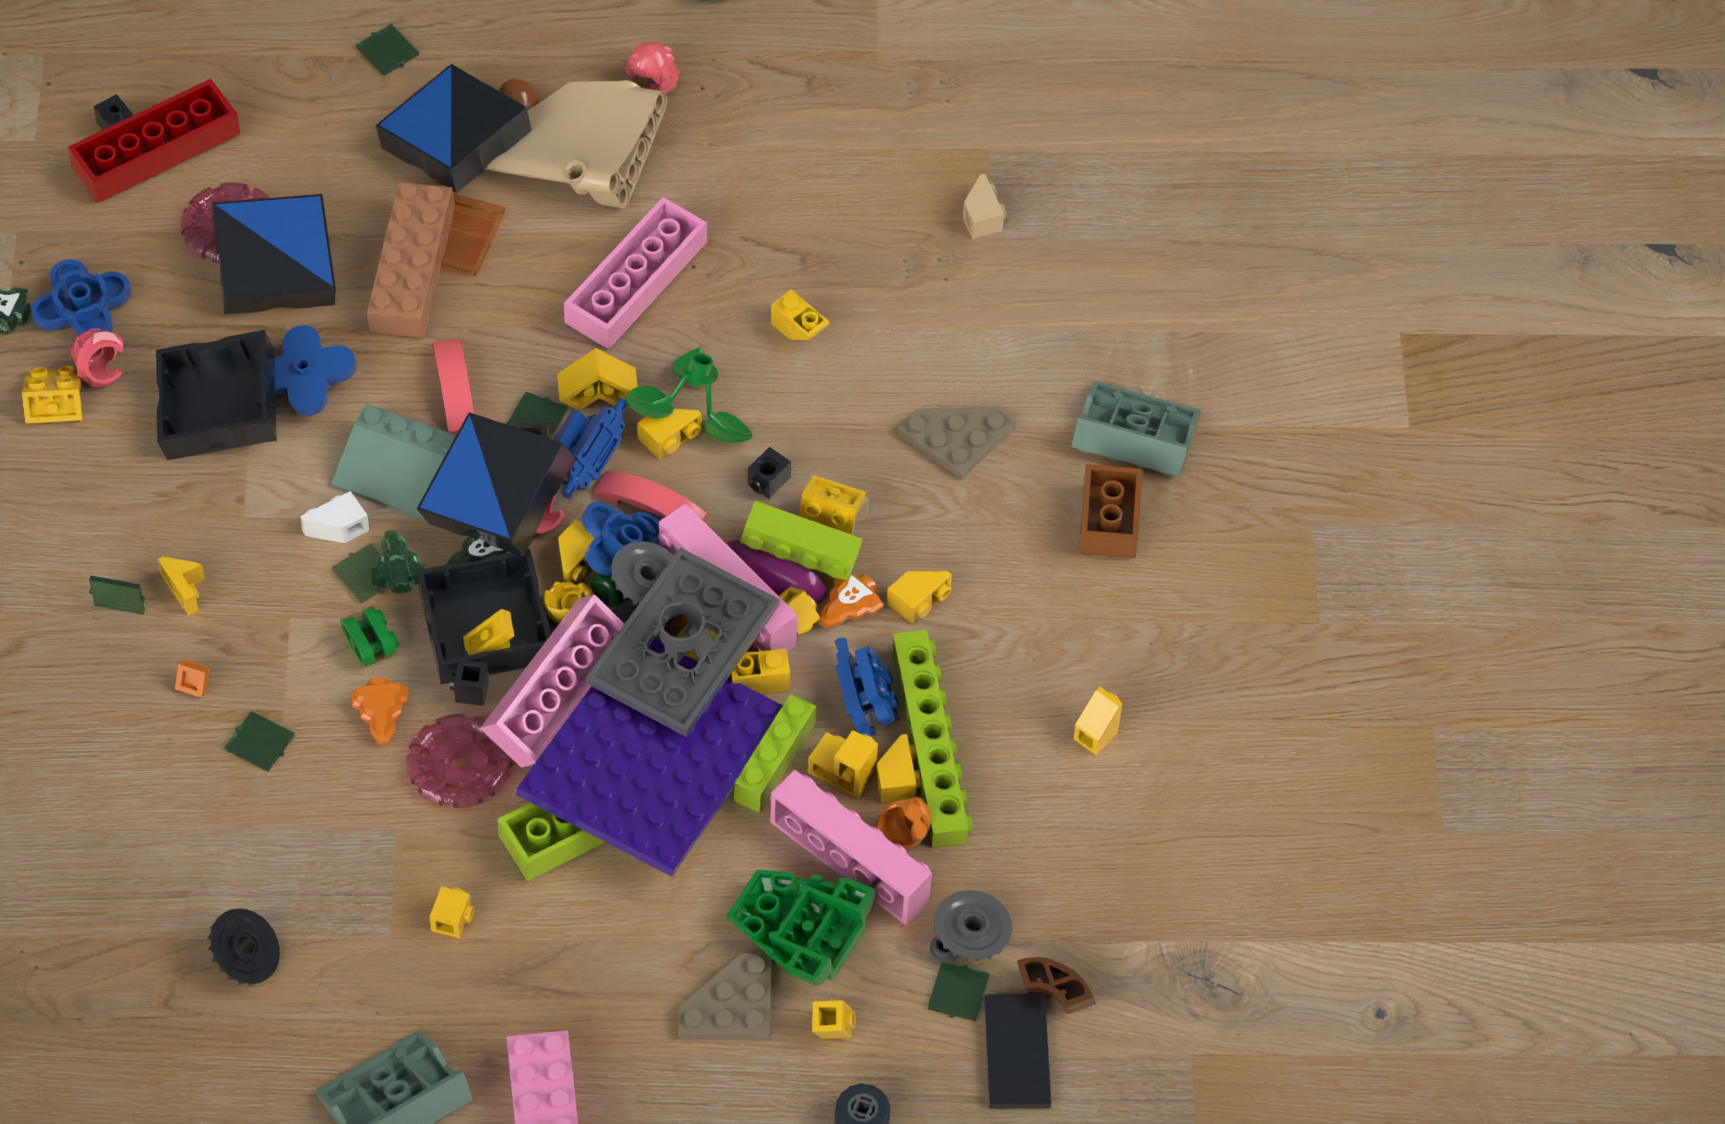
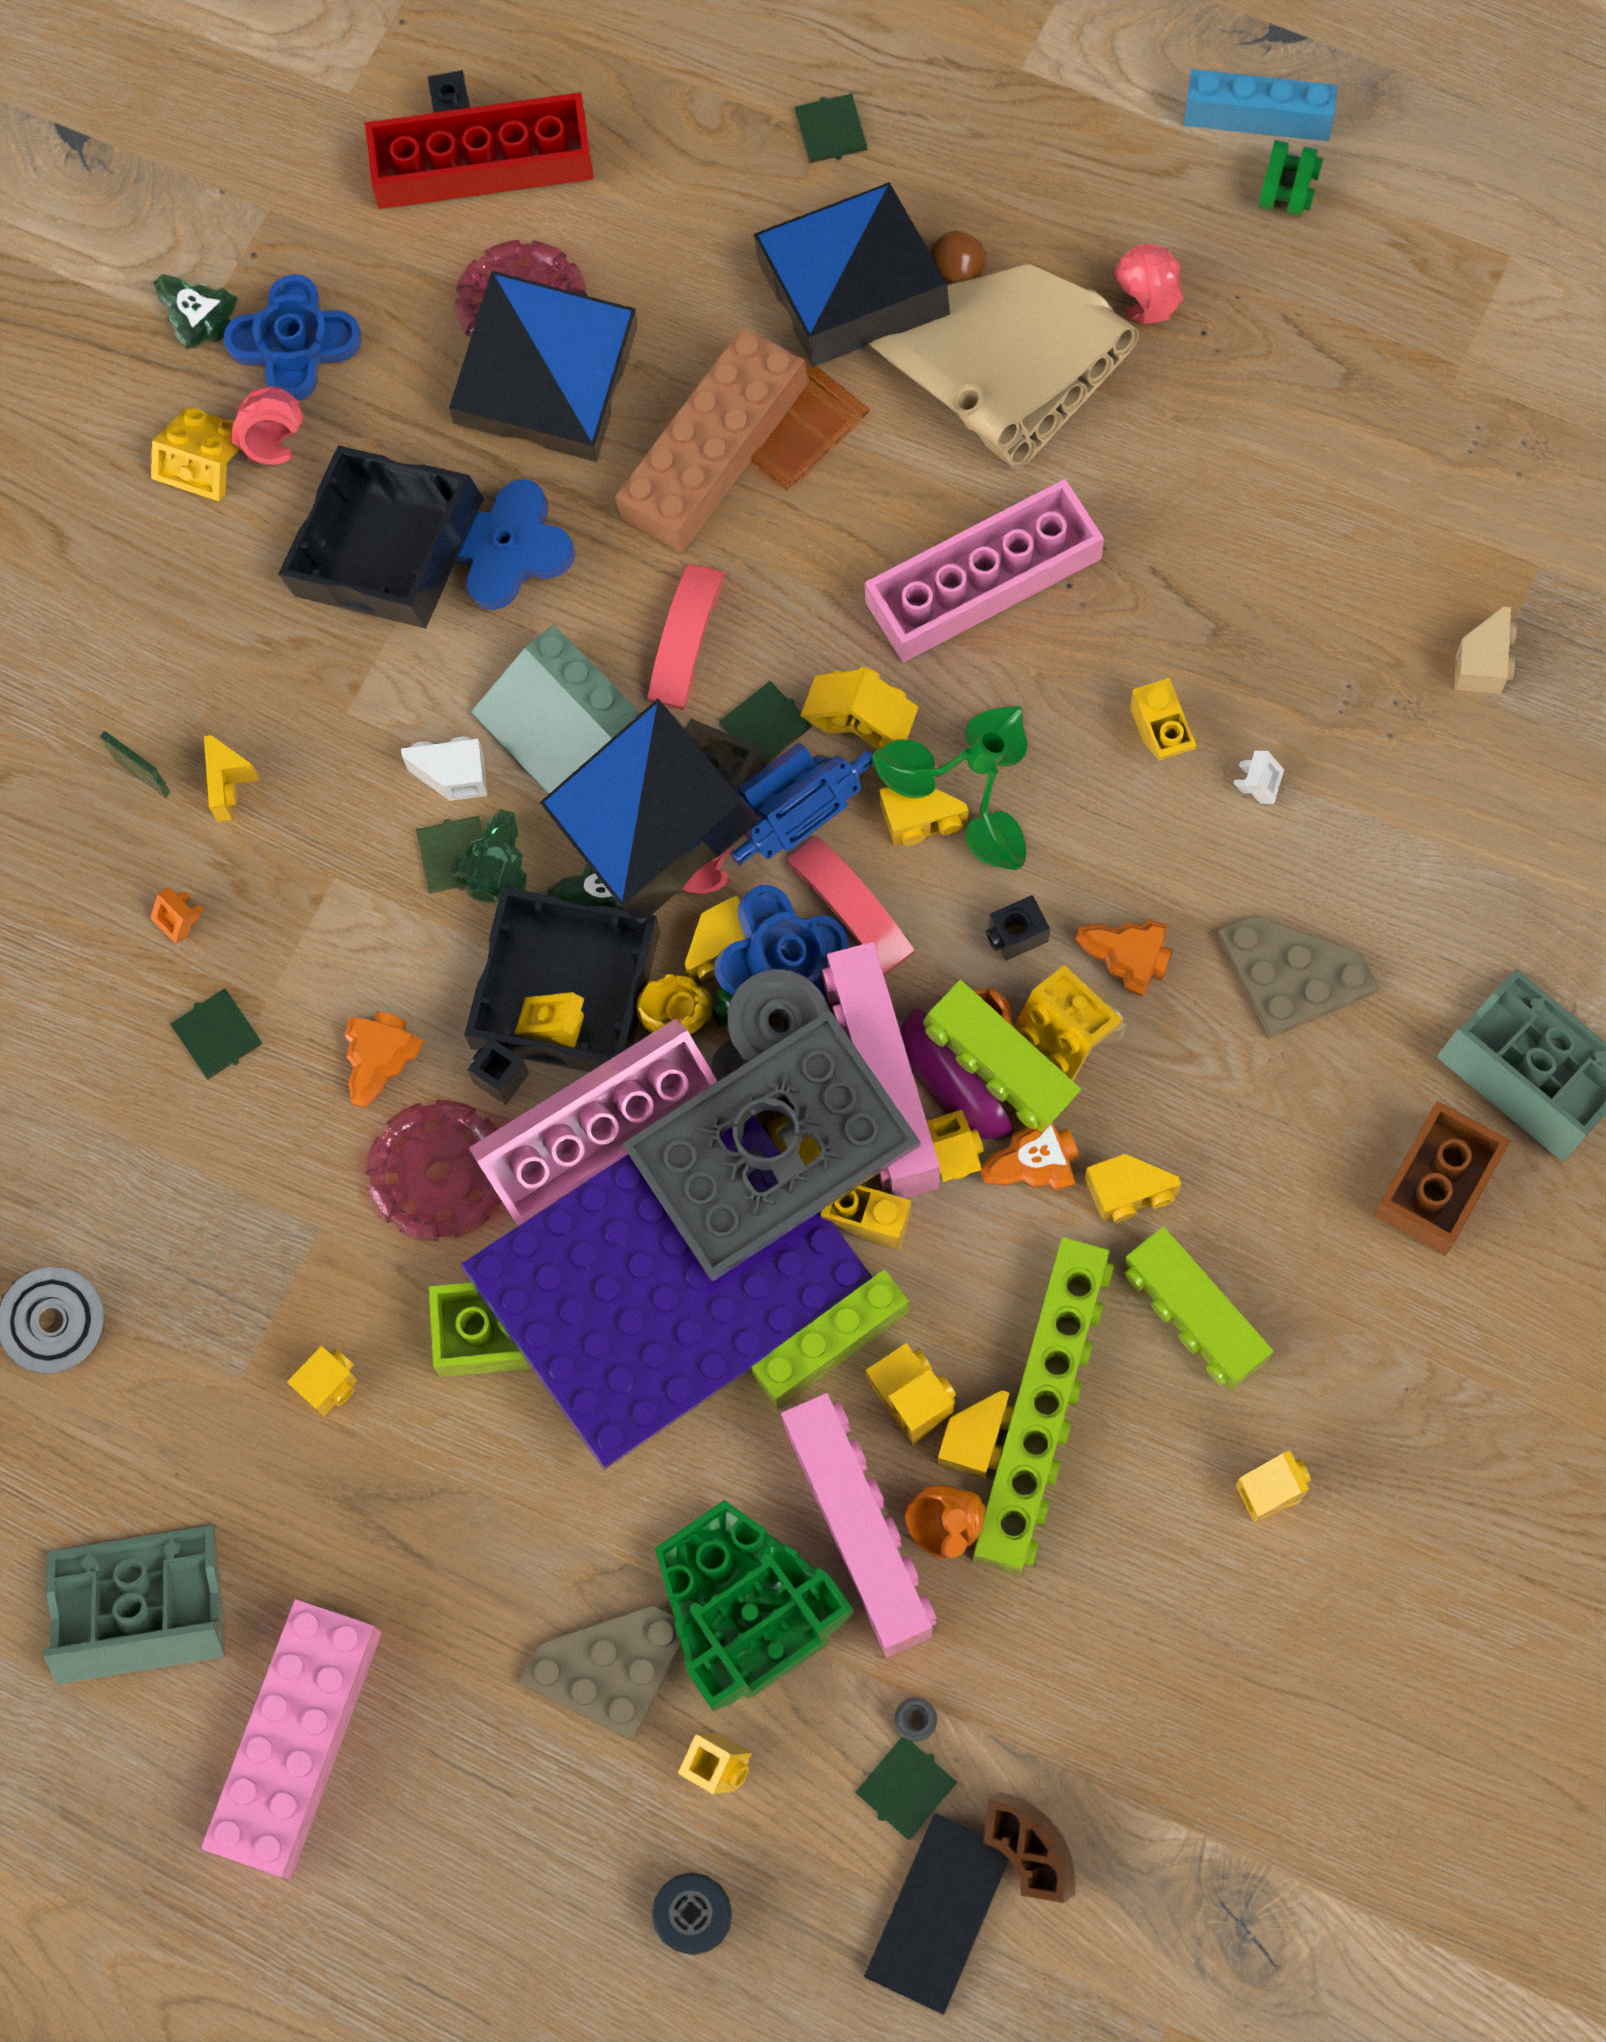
camera: 35 degrees right, 15 degrees up
(375, 623) = (426, 964): green brick -> none
(846, 460) = (1129, 952): none -> orange rock
(865, 688) = (989, 1302): blue piece -> none
(879, 330) = (1262, 777): none -> white tile
(975, 911) = (992, 1705): dark grey gear -> none
(998, 645) = (1197, 1309): none -> lime brick

